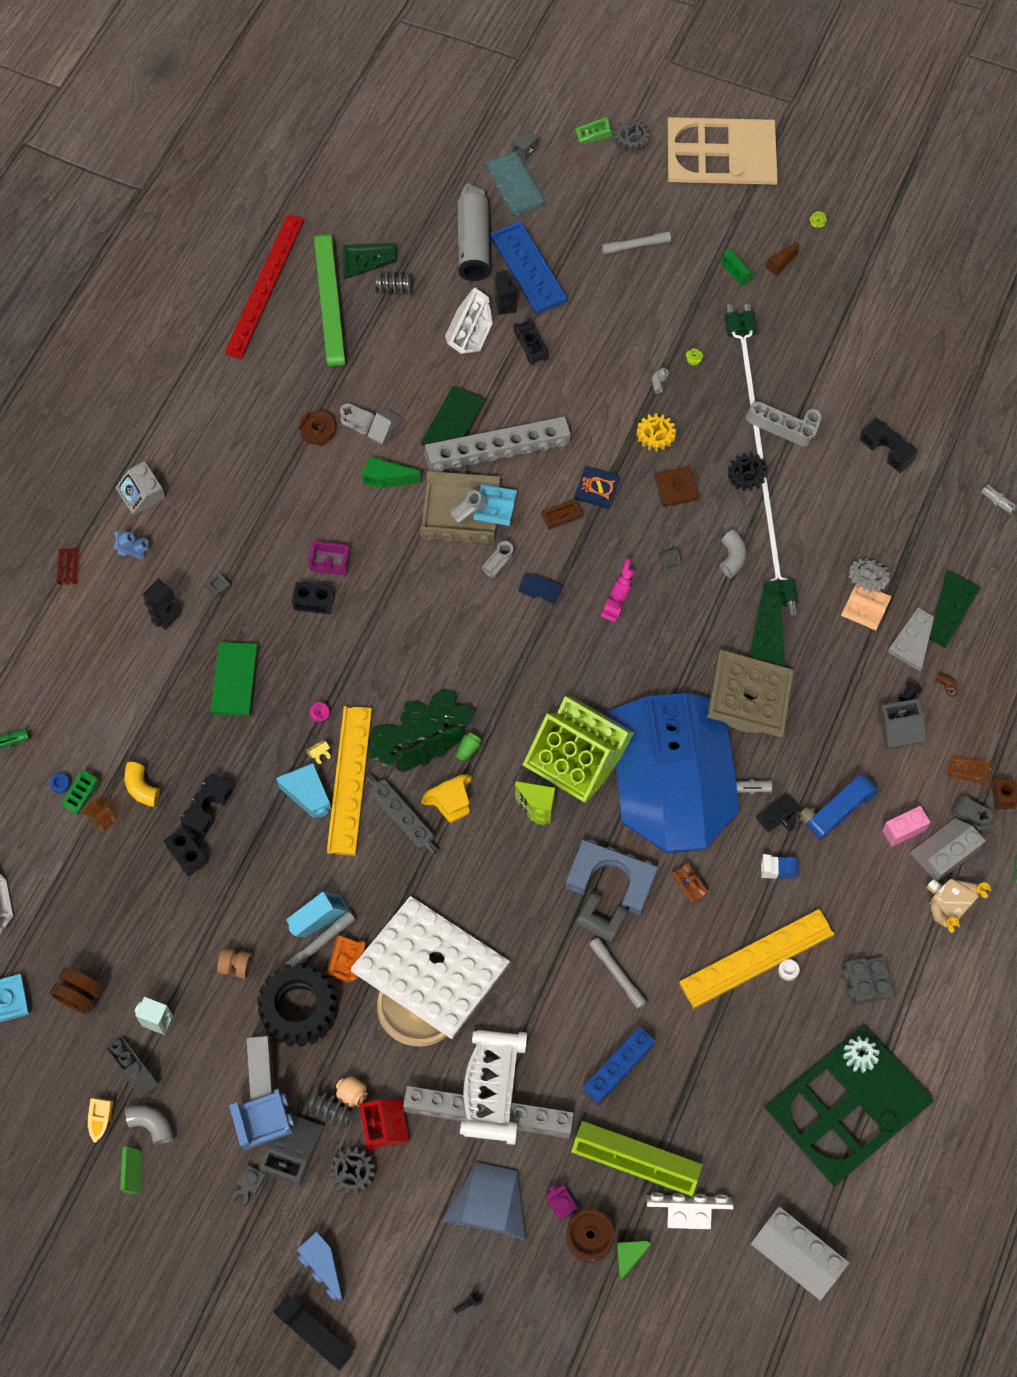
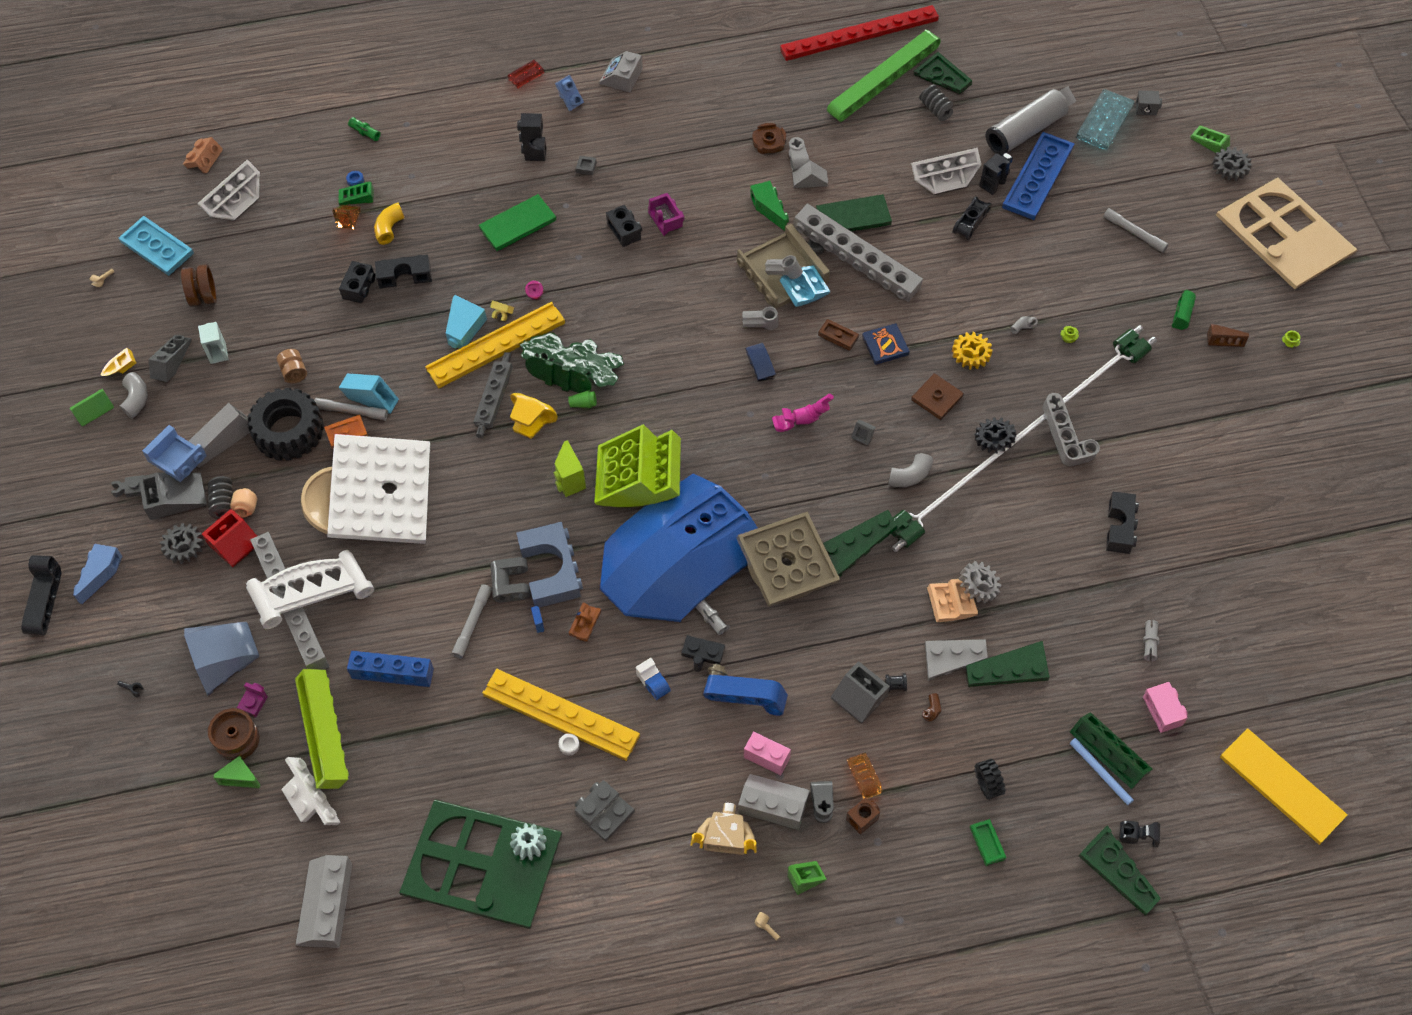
camera: 55 degrees right, 5 degrees down
(657, 919) = (537, 619): none -> blue tile

